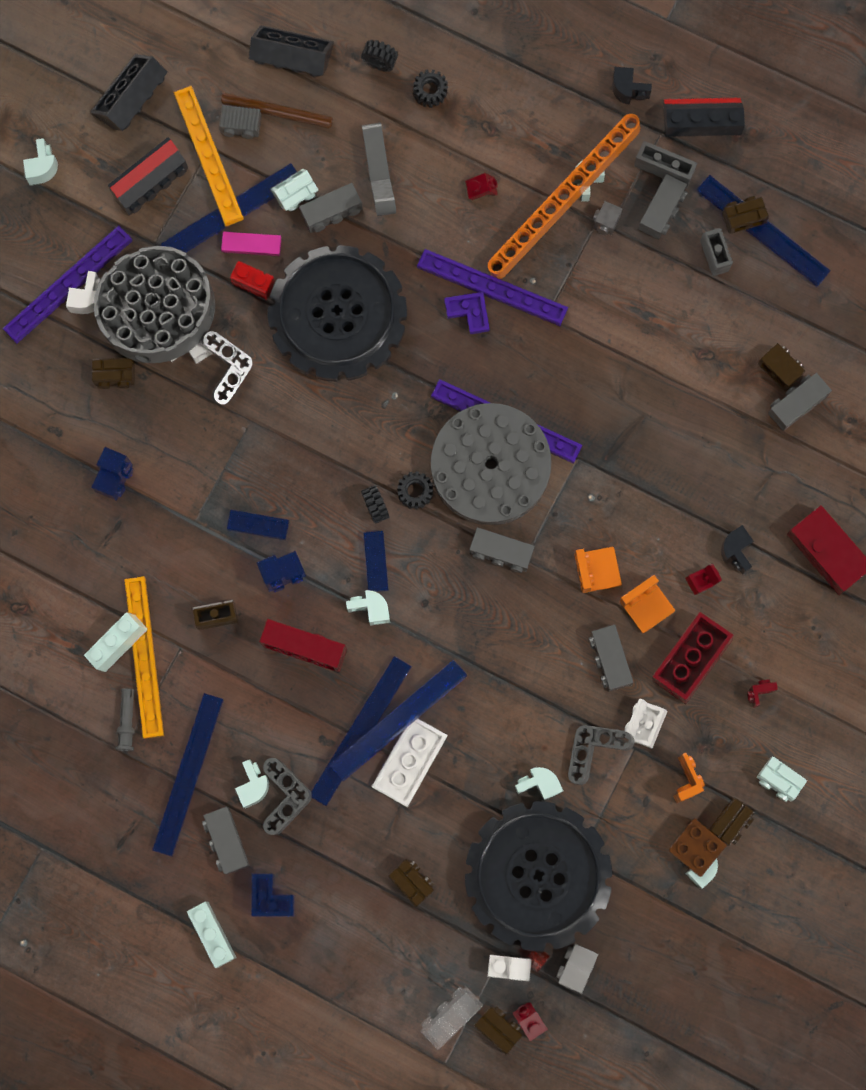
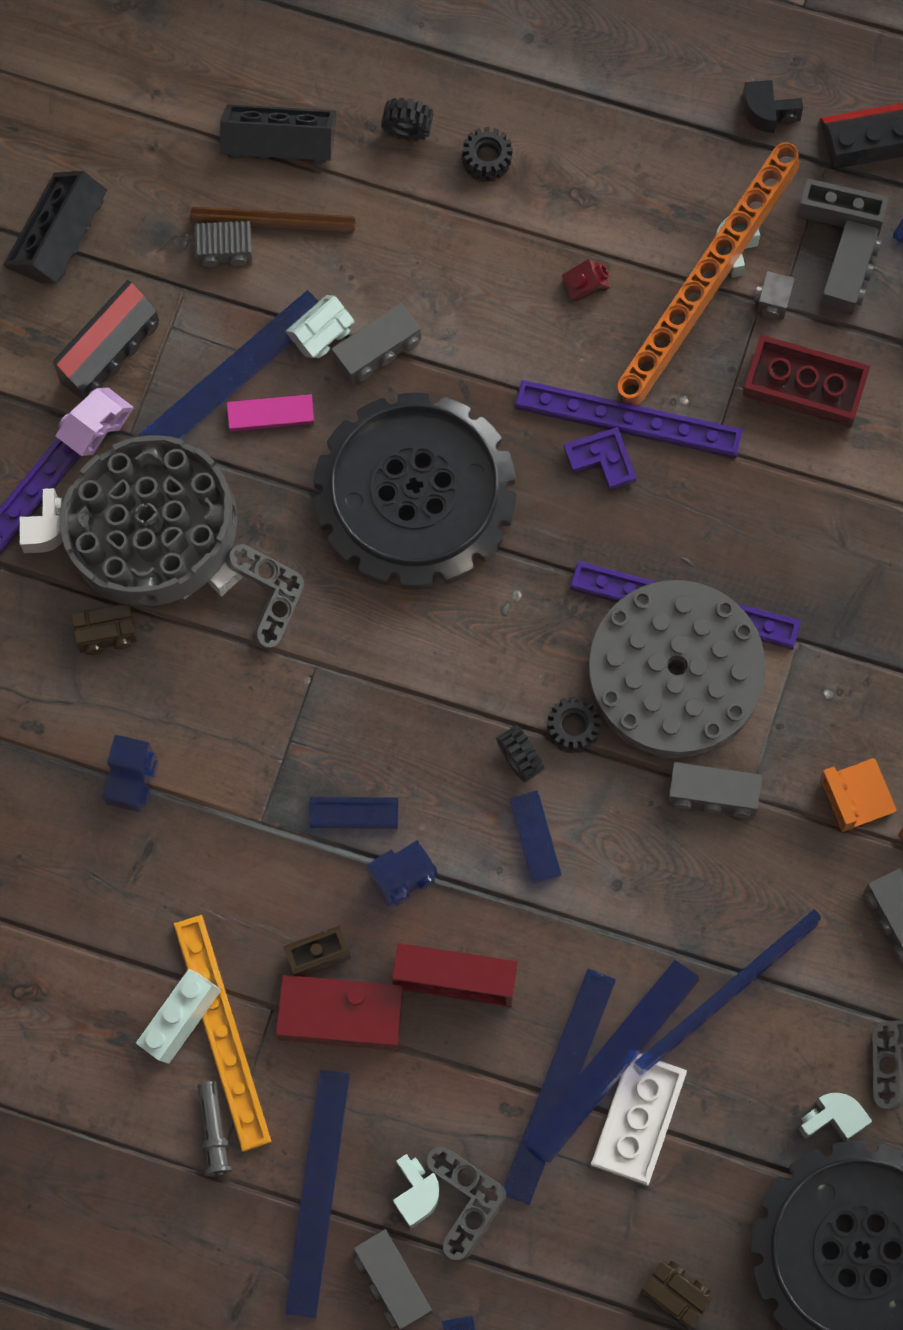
camera: 10 degrees left, 5 degrees down
(129, 228) = (92, 419): none -> lavender brick
(208, 156) = (187, 299): light orange tile -> none
(223, 657) = (340, 1012): none -> dark red brick
(252, 280) = (283, 464): red brick -> none
(374, 603) = (546, 898): light aqua brick -> none
(378, 169) = (443, 301): dark grey beam -> none
(483, 688) = (727, 993): none -> clear blue tile
(617, 281) = (806, 380): none -> dark red brick

